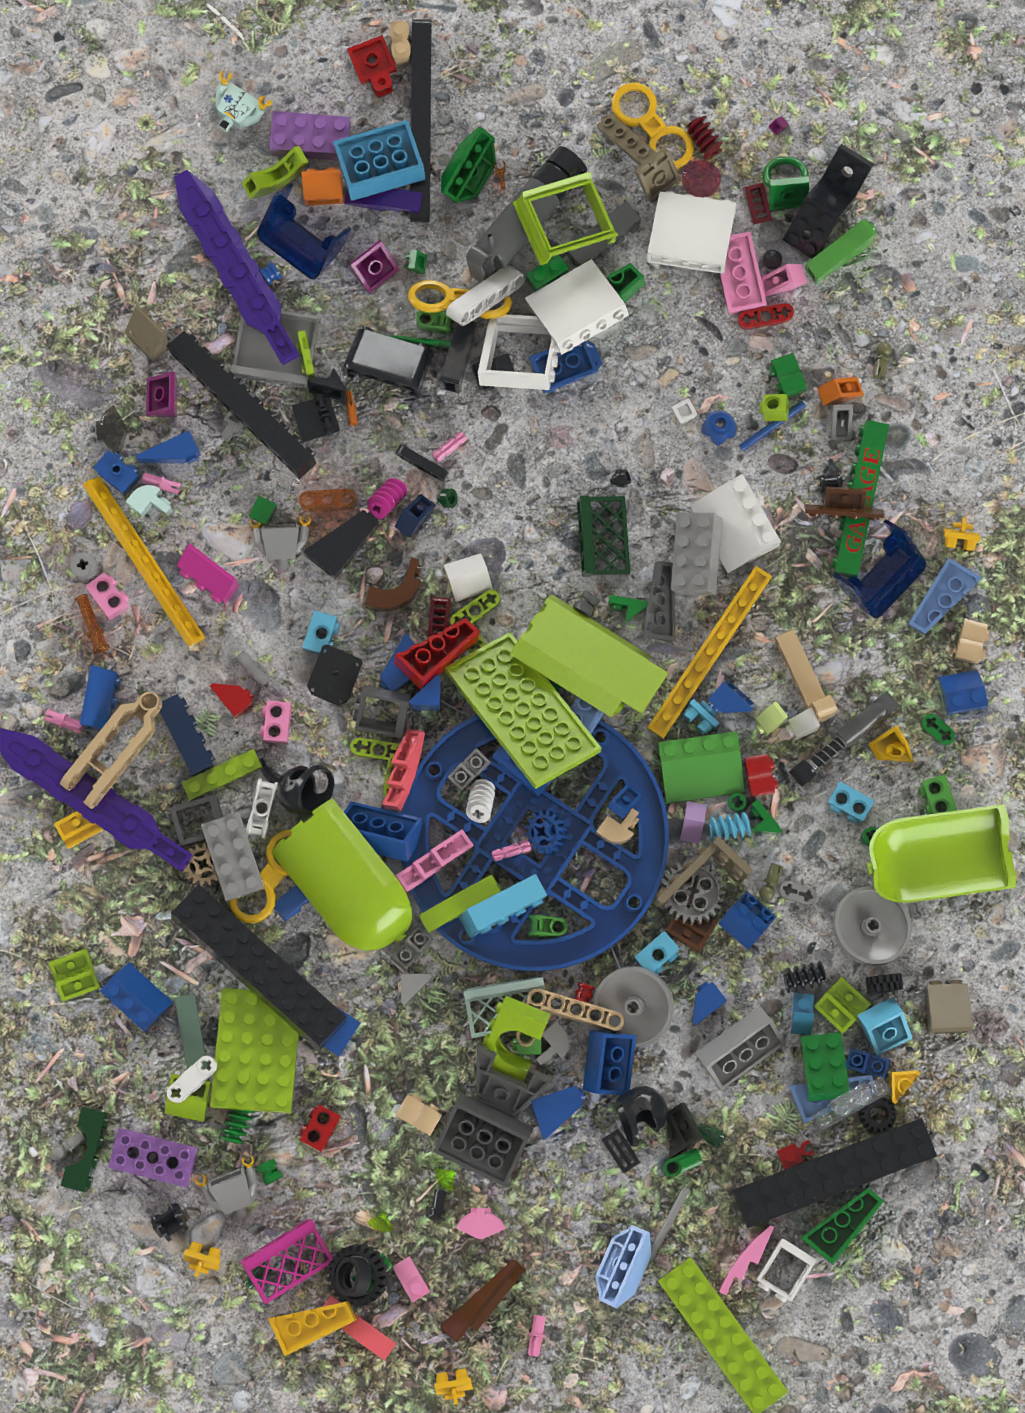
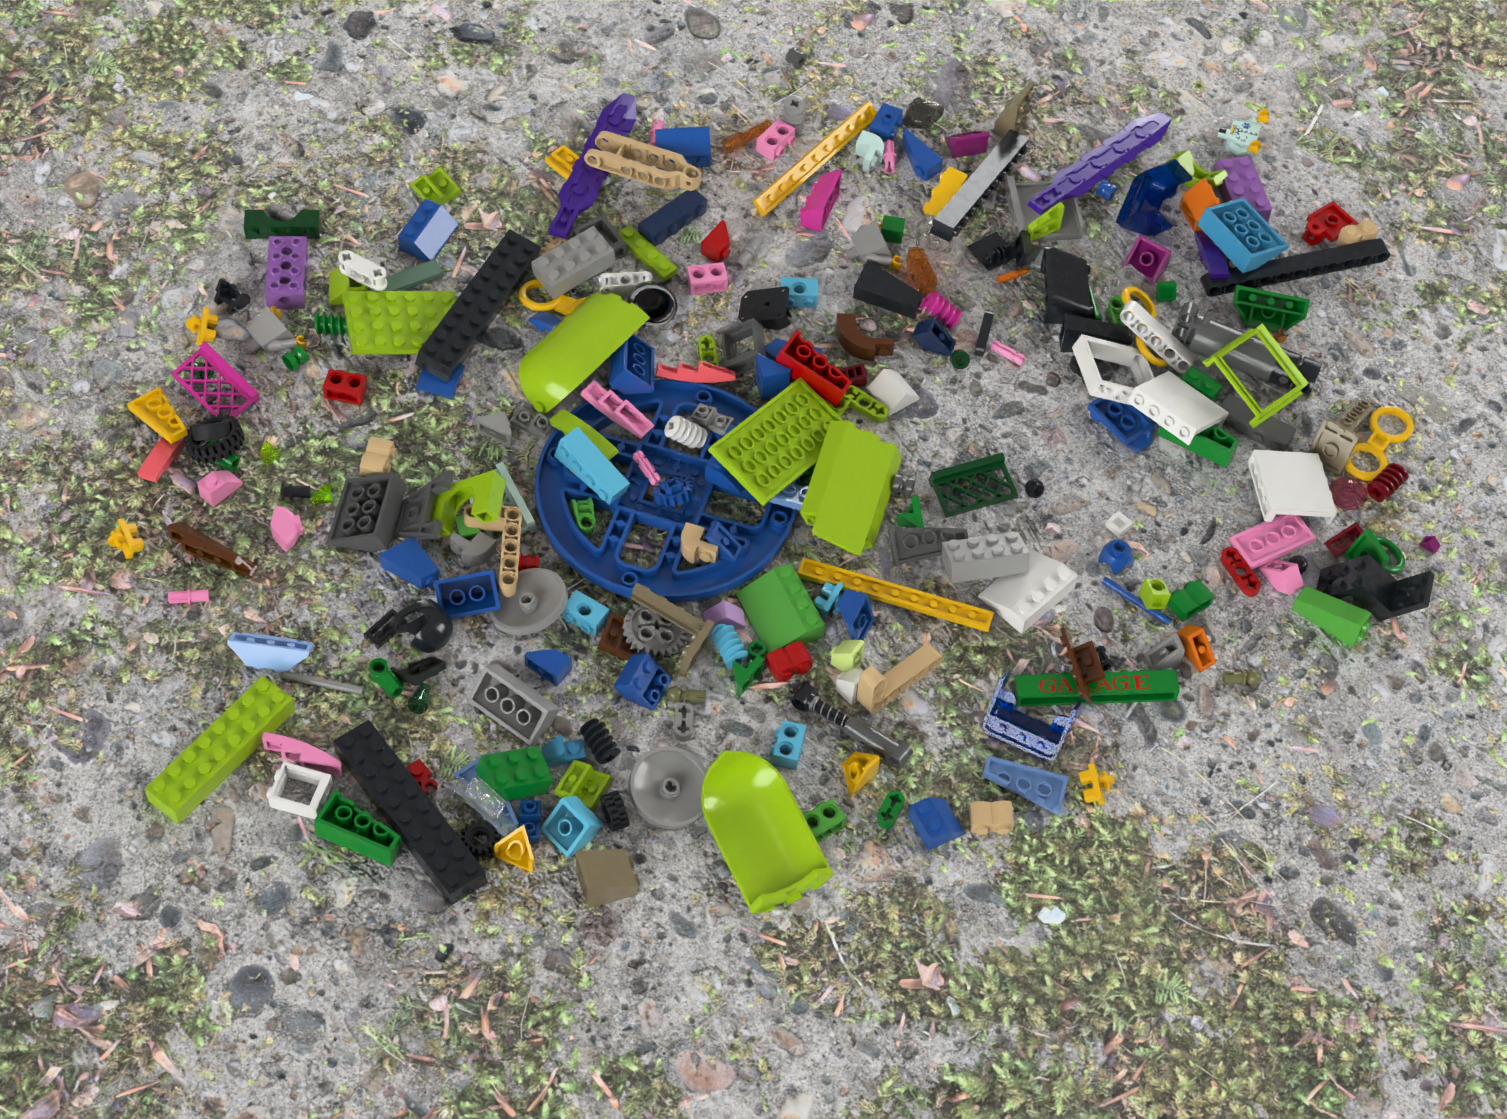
camera: 70 degrees right, 25 degrees down
(239, 444) = (949, 184): none -> yellow brick

